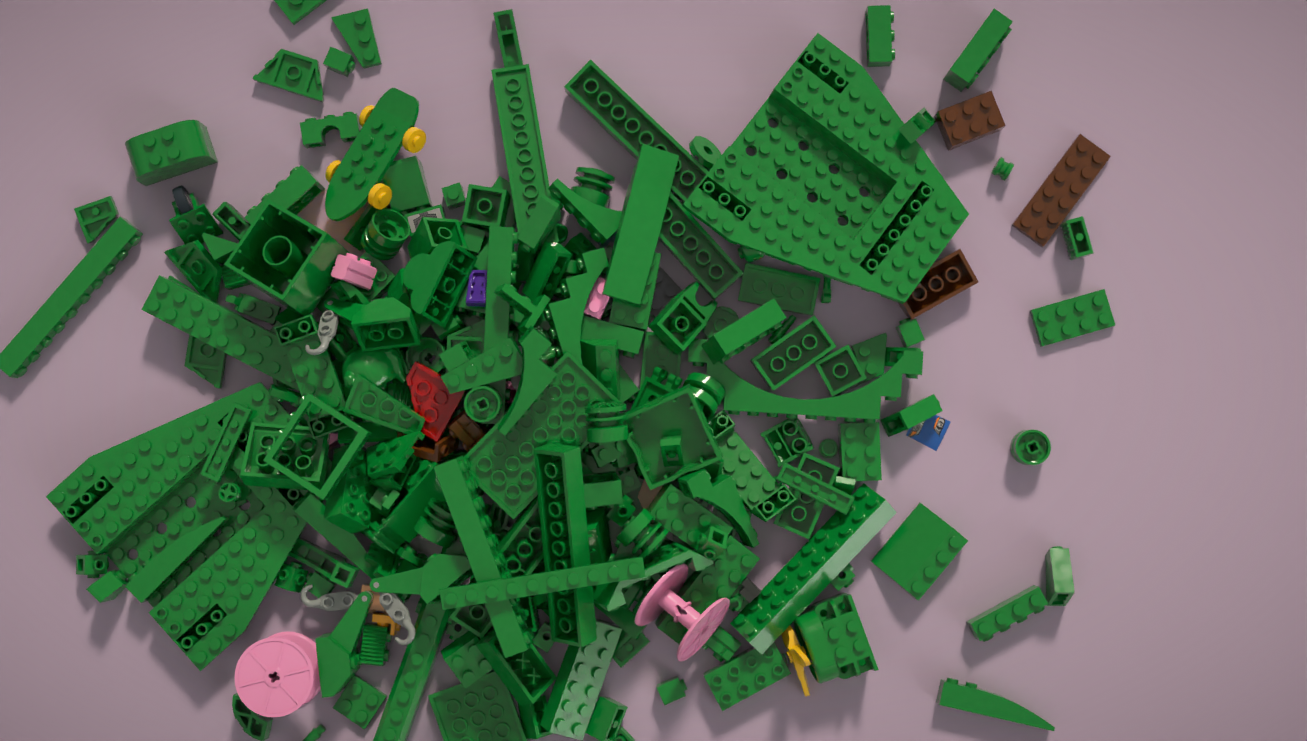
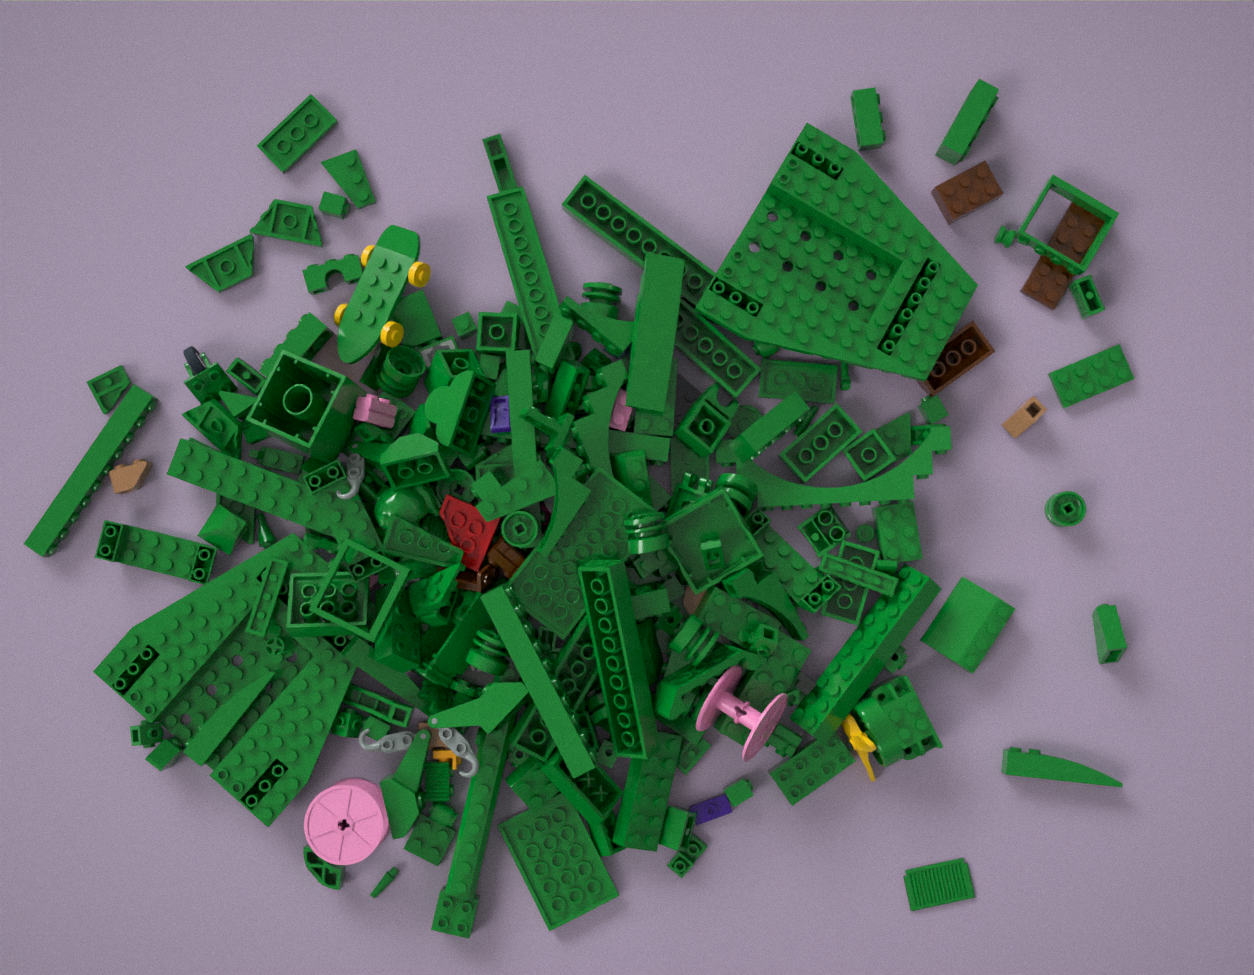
camera: 10 degrees left, 0 degrees up
(106, 309) = (131, 477): none -> medium nougat slope
(122, 385) = (156, 552): none -> green slope
(170, 151) = (176, 313): green brick -> none
(192, 370) = (224, 529): none -> green slope
(226, 109) = (227, 265): none -> green wing
(233, 381) = (266, 536): none -> green cone
(375, 678) = (442, 814): none -> green brick
(385, 501) = (433, 637): green slope -> none
(542, 583) = (601, 699): green plate -> none
(642, 704) = (711, 809): none -> dark purple plate
(705, 151) = (709, 252): green tile -> none
(911, 415) = (943, 491): green slope -> none
(917, 125) = (916, 203): green slope -> none
(929, 431) = (961, 502): blue sticker -> none
(1000, 350) = (1024, 417): none -> medium nougat slope
(1007, 612) = (1061, 676): green brick -> none
(1084, 142) = (1084, 201): none -> green window

